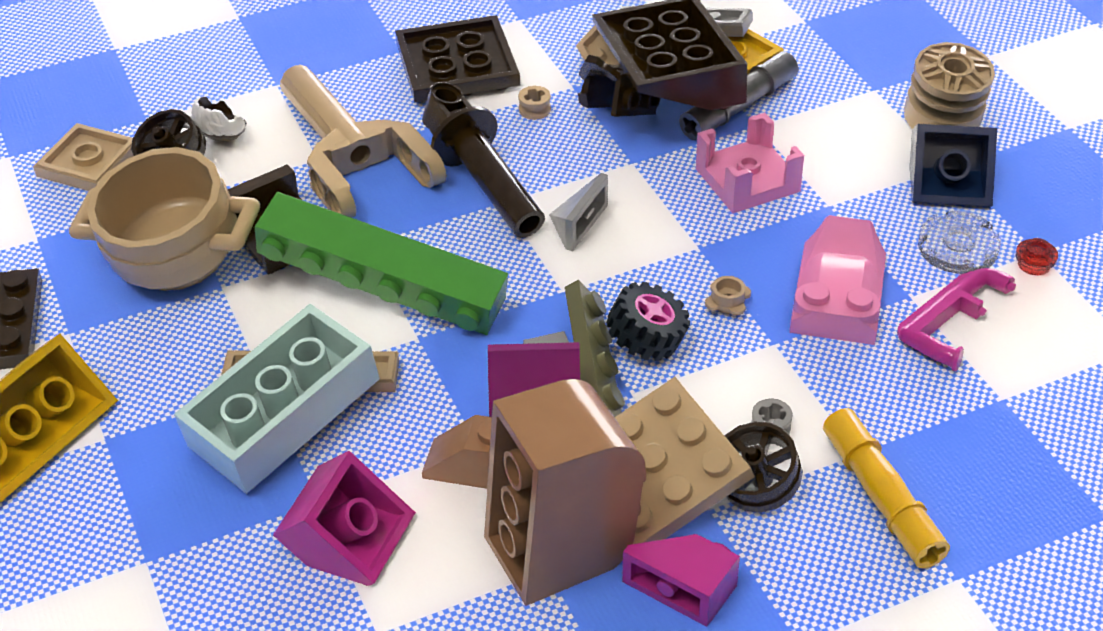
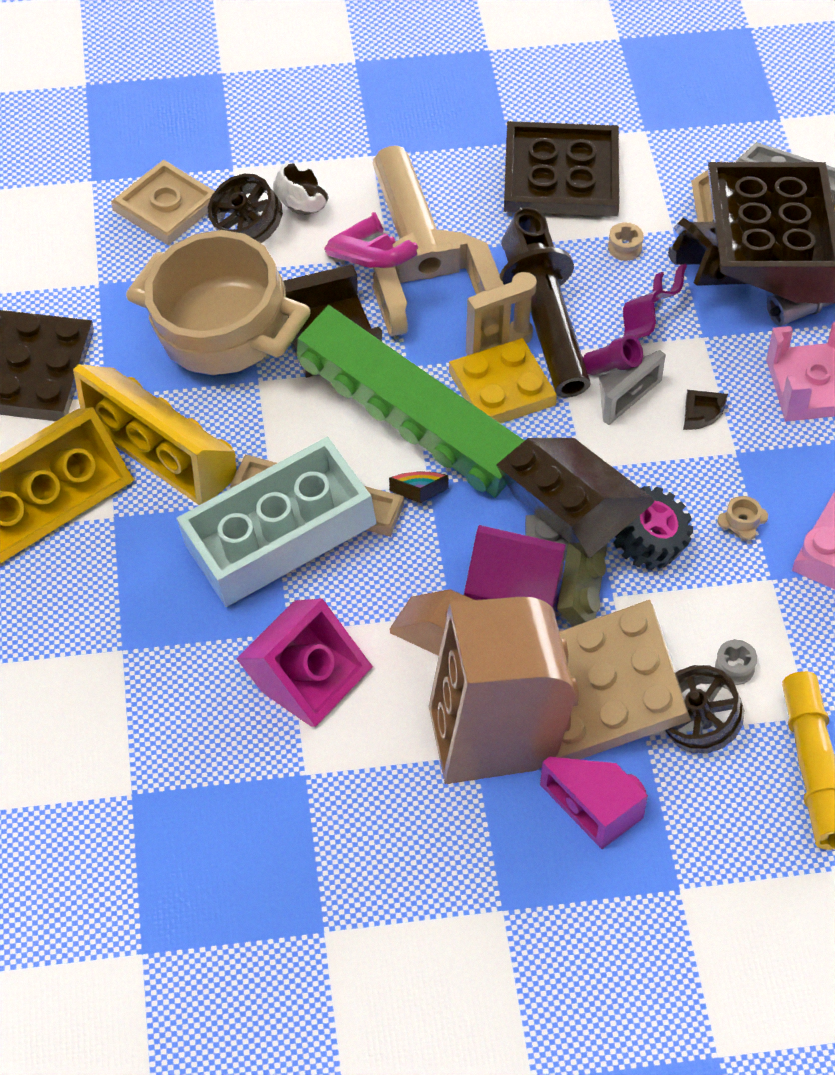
camera: 15 degrees right, 10 degrees up
(131, 350) = (156, 433): none -> yellow slope
(297, 146) = (377, 253): none -> dark pink piece
(409, 338) = (419, 485): none -> dark brown tile
(434, 178) = (491, 311): none -> tan plate
(464, 230) = (503, 381): none -> yellow plate
(564, 303) = (573, 491): none -> dark brown slope
(570, 158) = (639, 322): none -> magenta flag
(654, 217) = (703, 408): none -> dark brown tile

